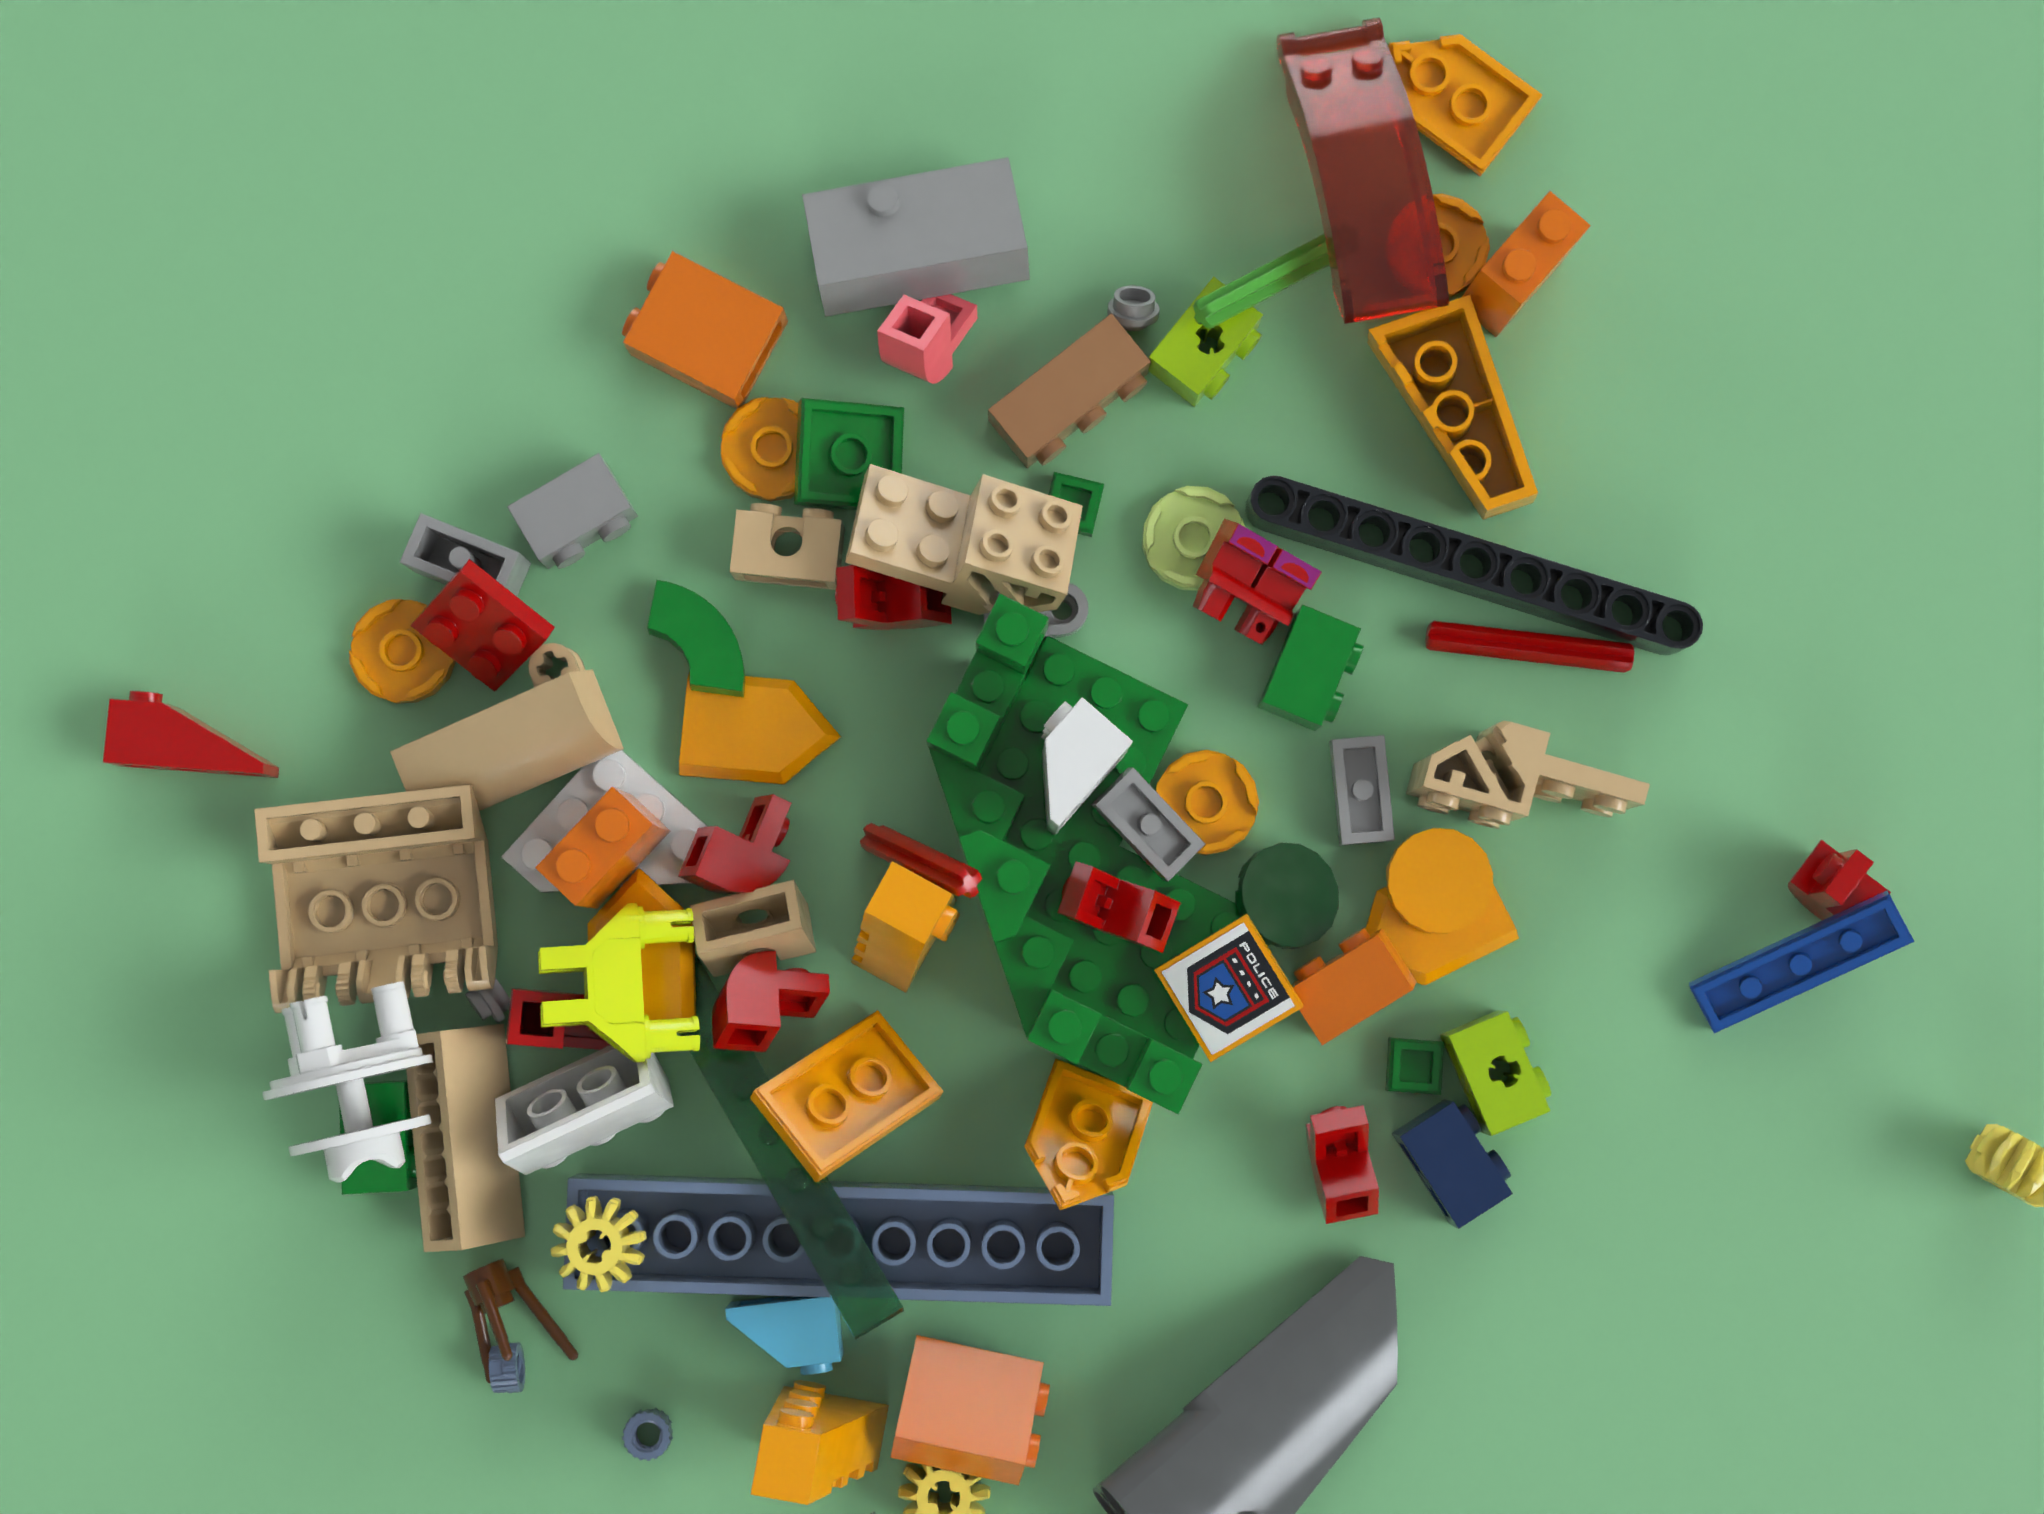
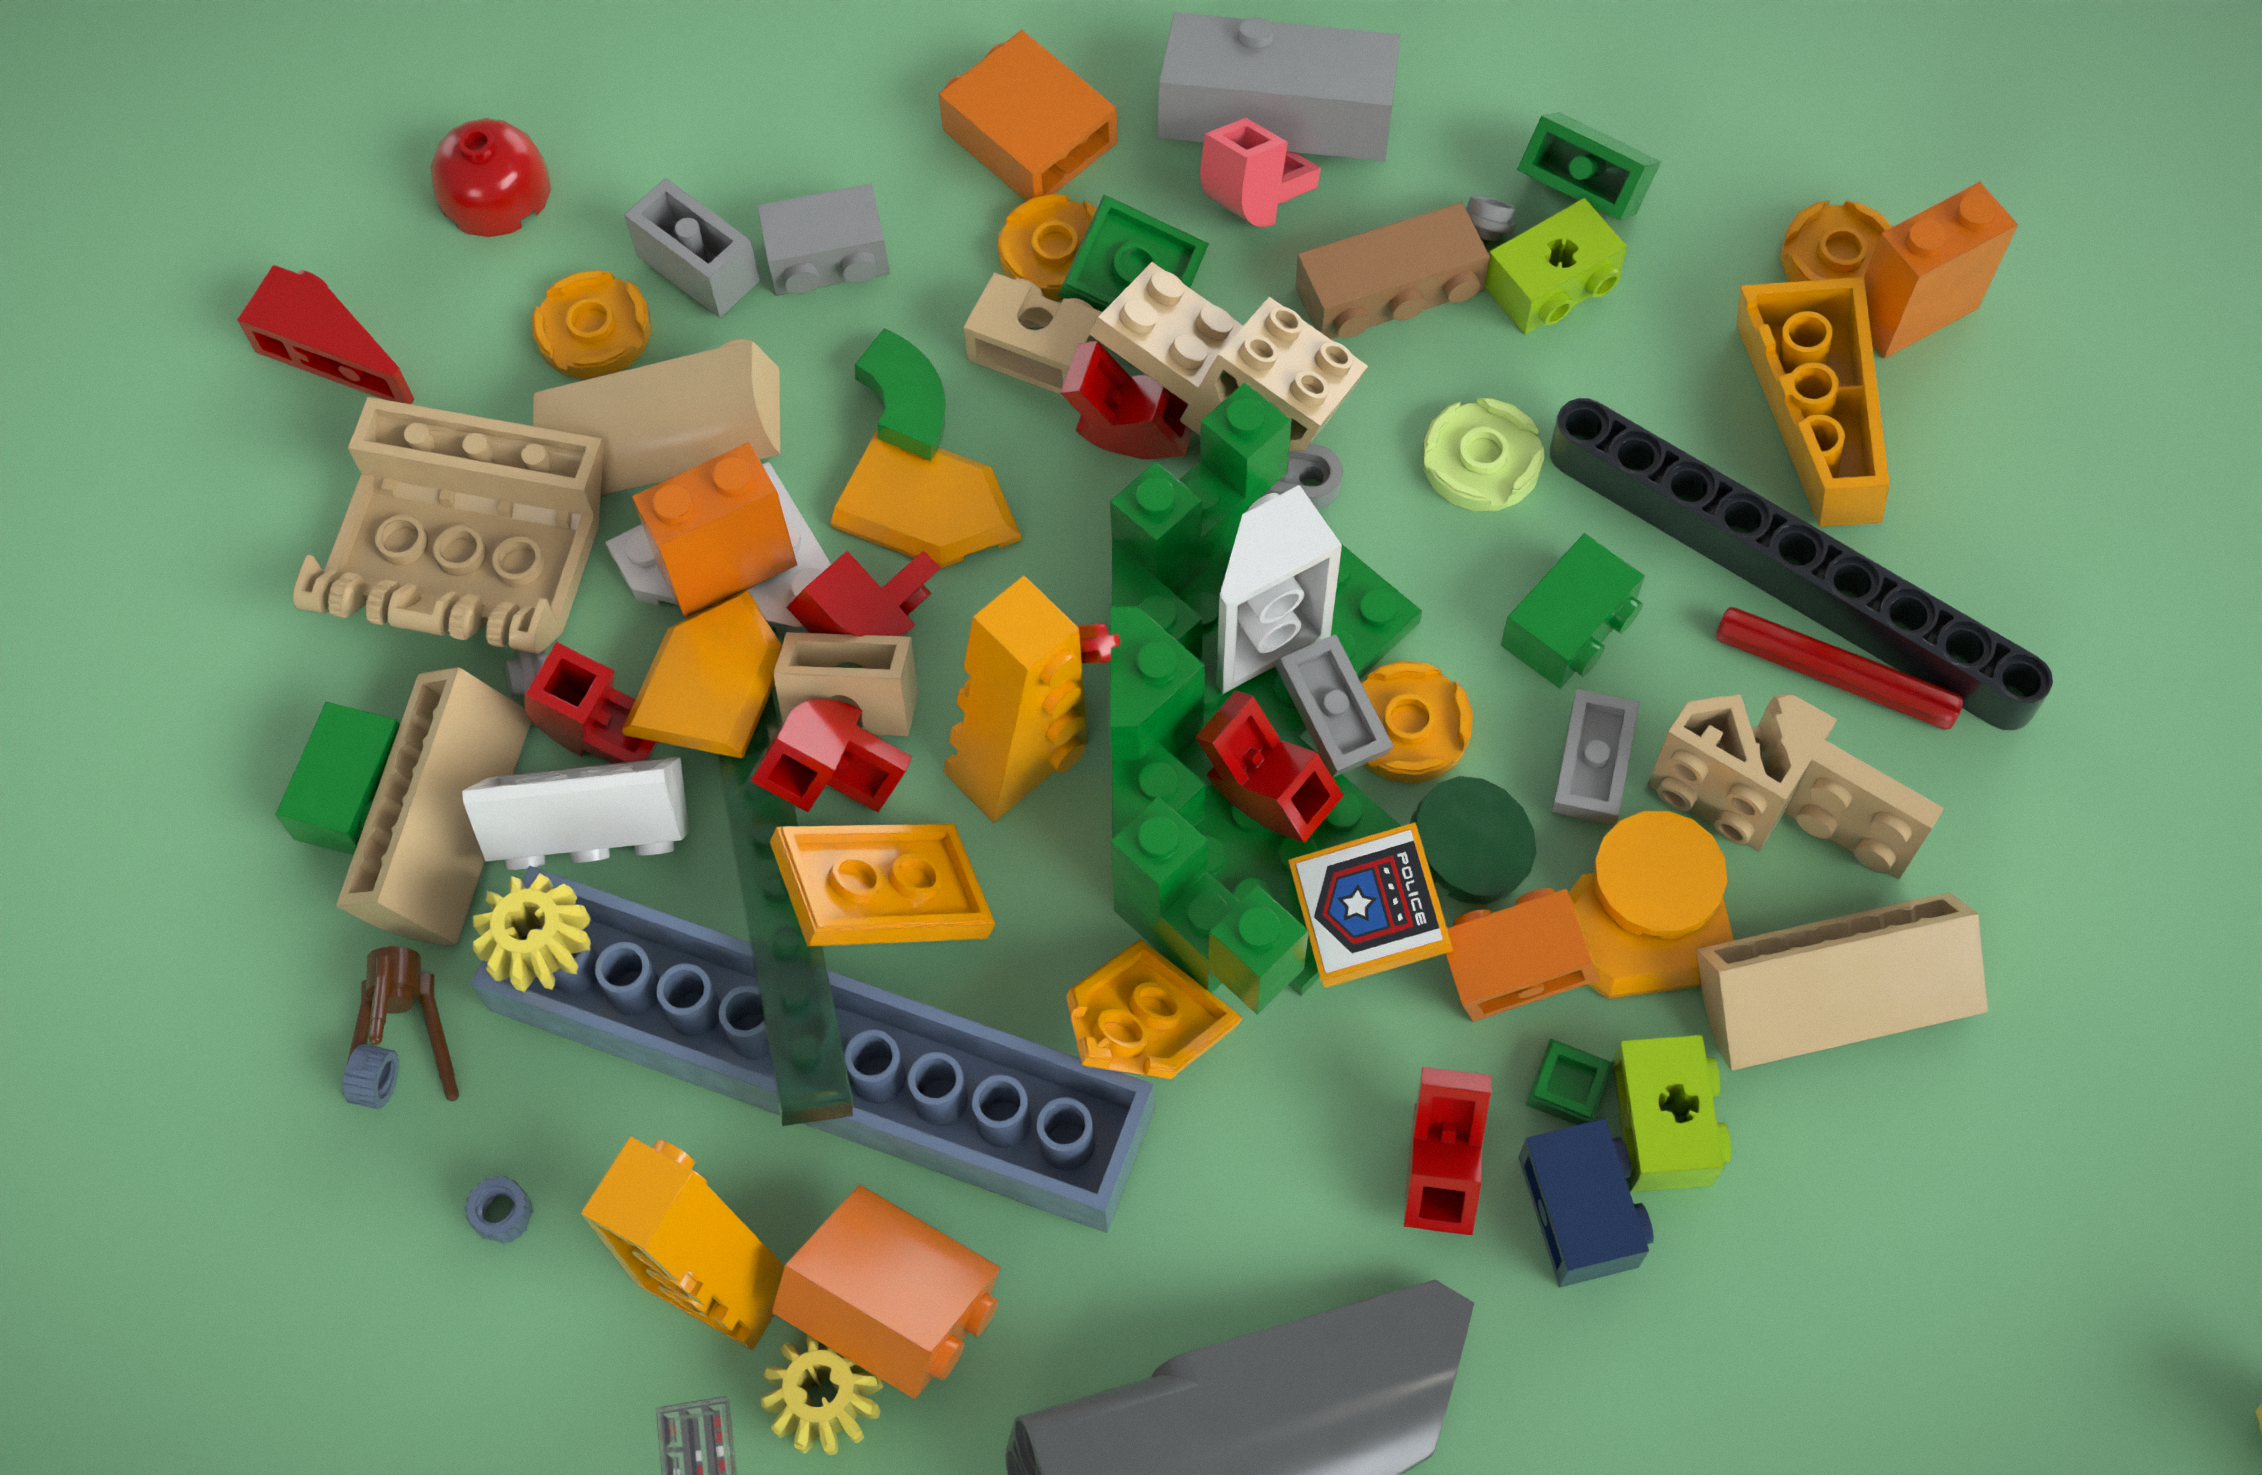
camera: 25 degrees right, 20 degrees down
(254, 538) = (489, 177): none -> red cylinder
(322, 1063) = (335, 672): white piece -> none
(482, 625) = (682, 295): red plate -> none
(615, 986) = (668, 663): neon yellow connector -> none
(792, 1330) = (725, 1133): medium azure slope -> none
(1081, 492) = (1372, 389): green tile -> none
(1206, 235) = (1588, 165): none -> green brick
(1256, 573) = (1516, 478): red hips -> none
(1262, 283) = (1652, 215): bright green axle -> none
(1366, 172) = (1781, 151): clear red windscreen -> none
(1462, 97) = (1906, 126): light orange tile -> none
(1598, 920) = (1843, 980): none -> tan brick
(1801, 962) = (2089, 1095): blue tile -> none
(1833, 881) = (2151, 1028): red brick -> none

